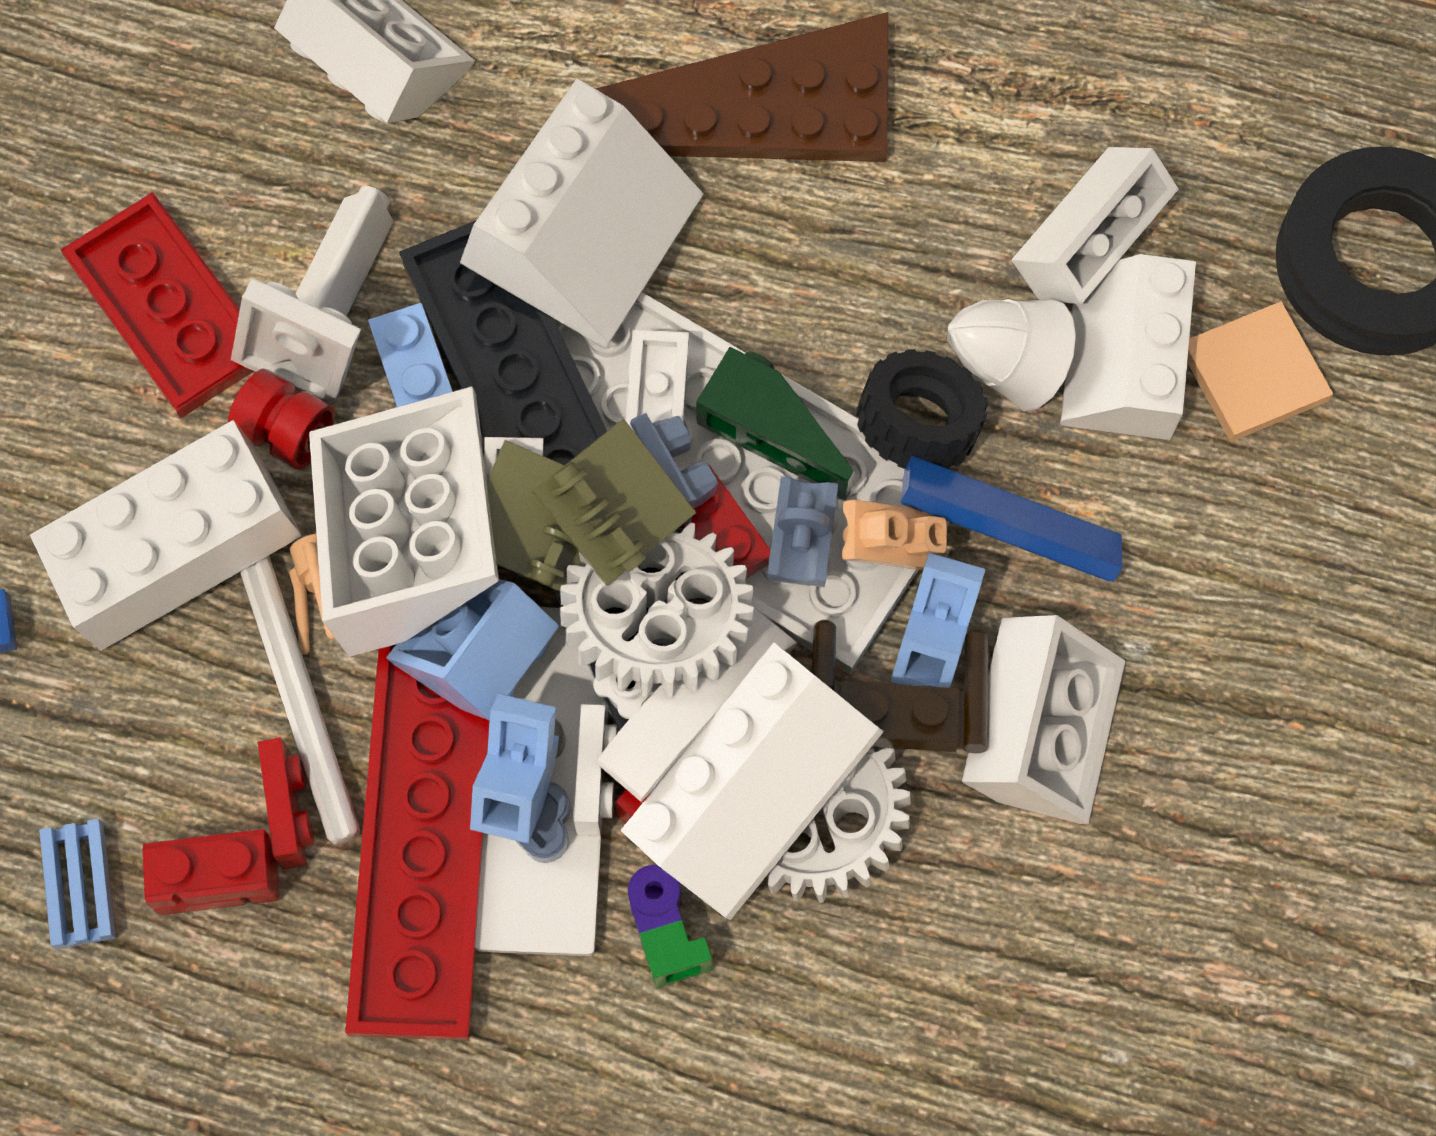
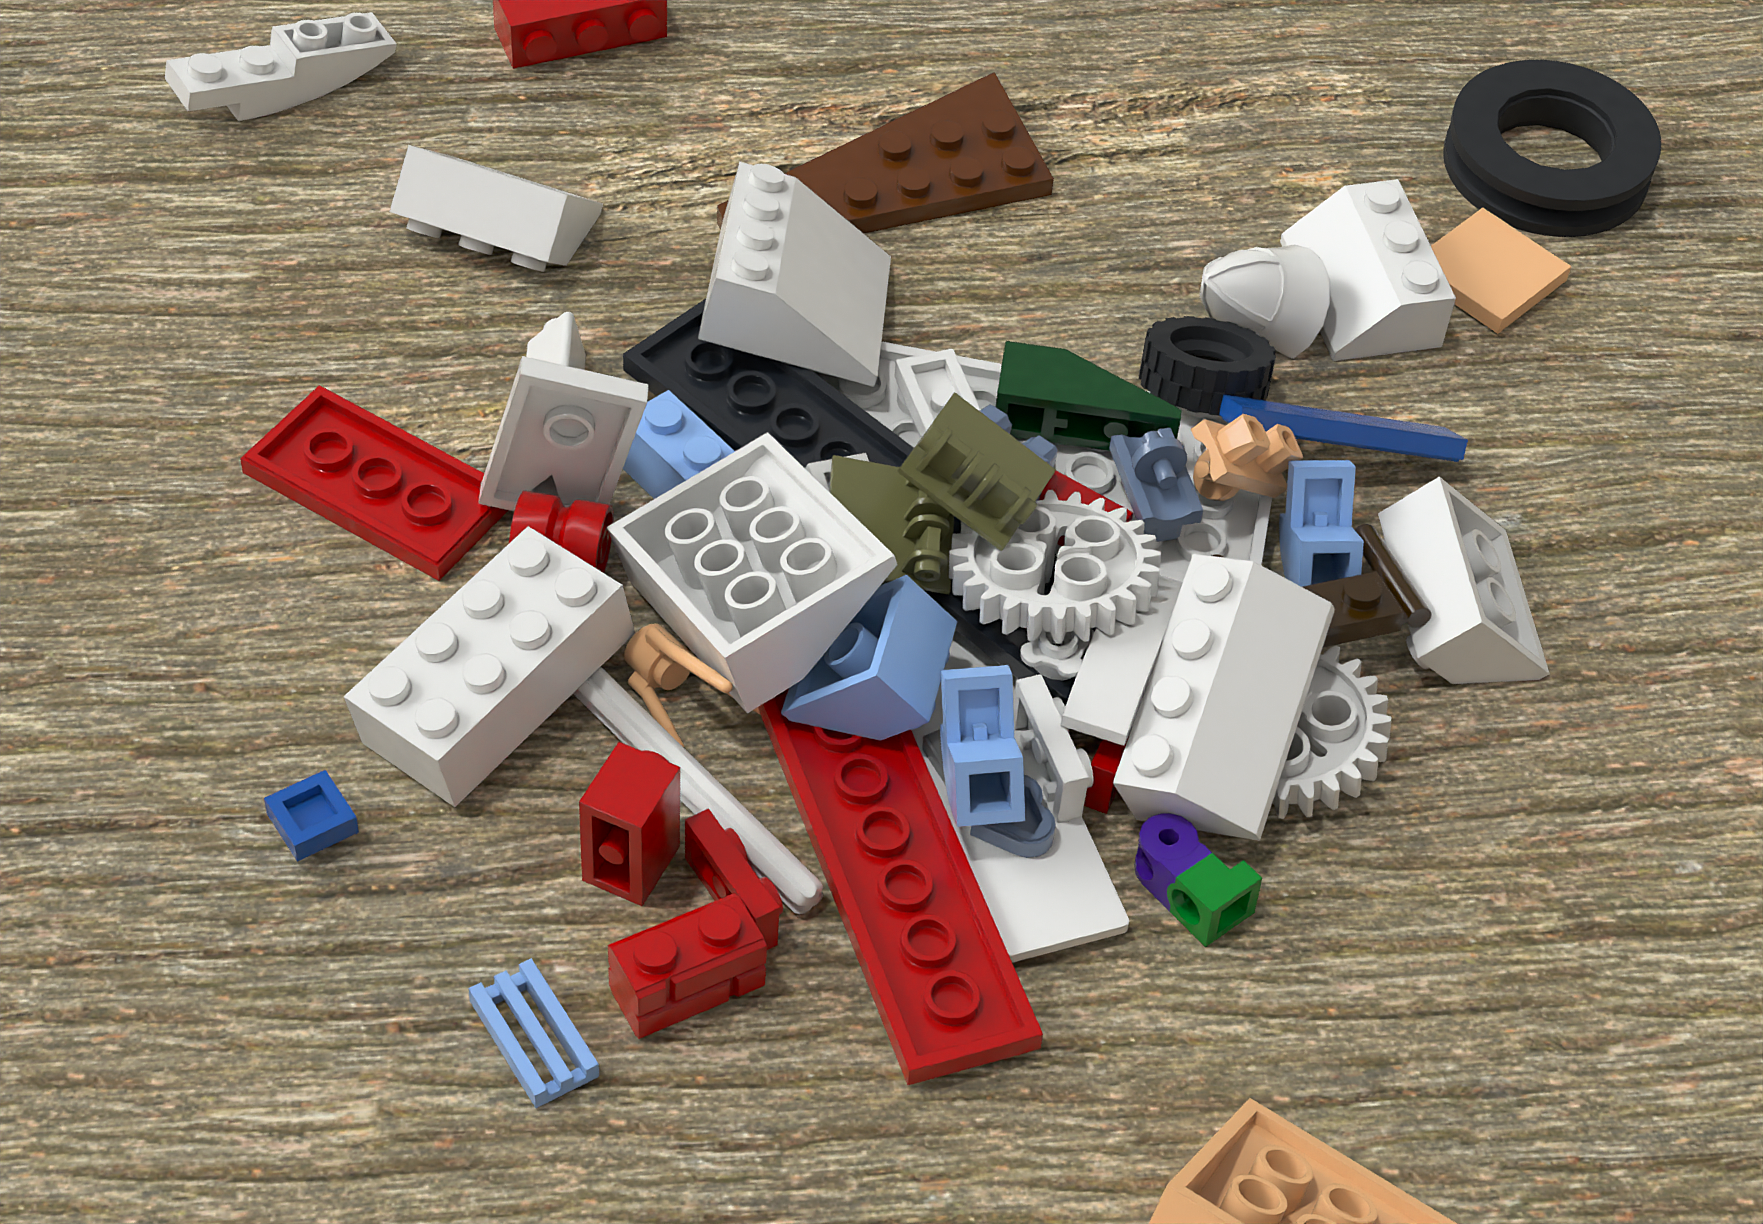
camera: 25 degrees left, 20 degrees down
(213, 728) = (630, 823): none -> red brick
(1095, 224) = (1285, 179): white brick -> none

